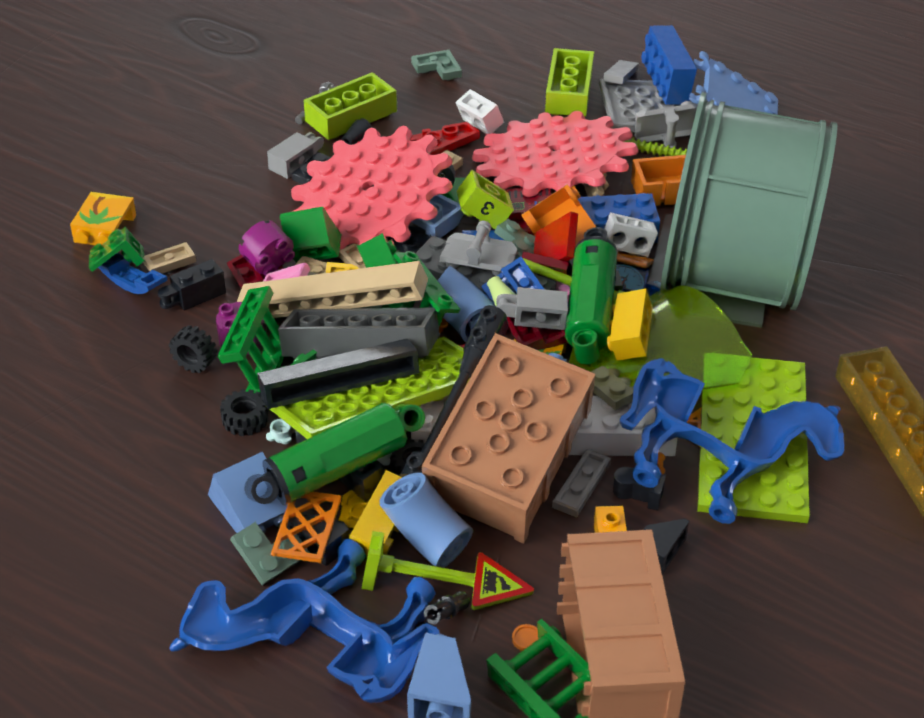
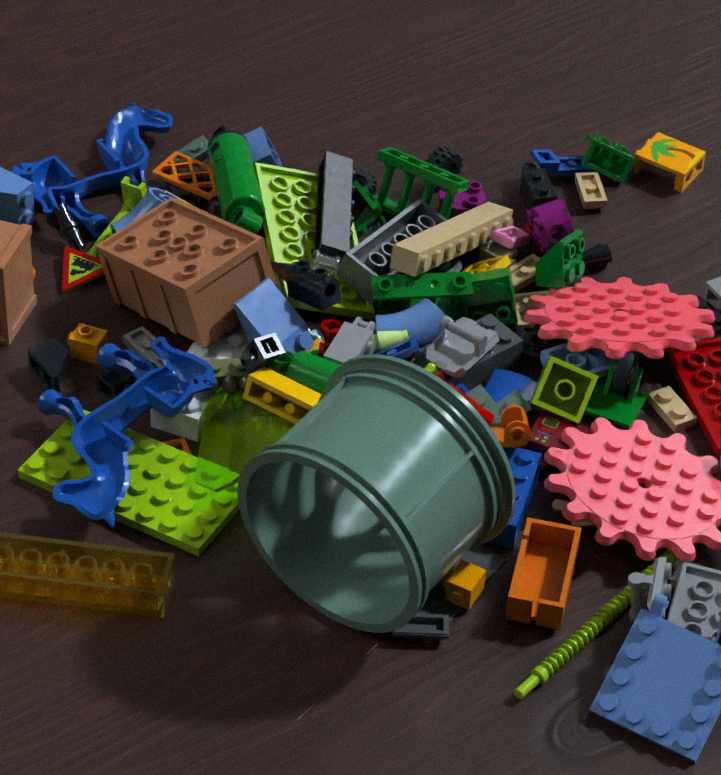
camera: 110 degrees right, 0 degrees up
(429, 355) = (321, 260): none -> clear bush
(605, 342) = (262, 352): none -> black leg

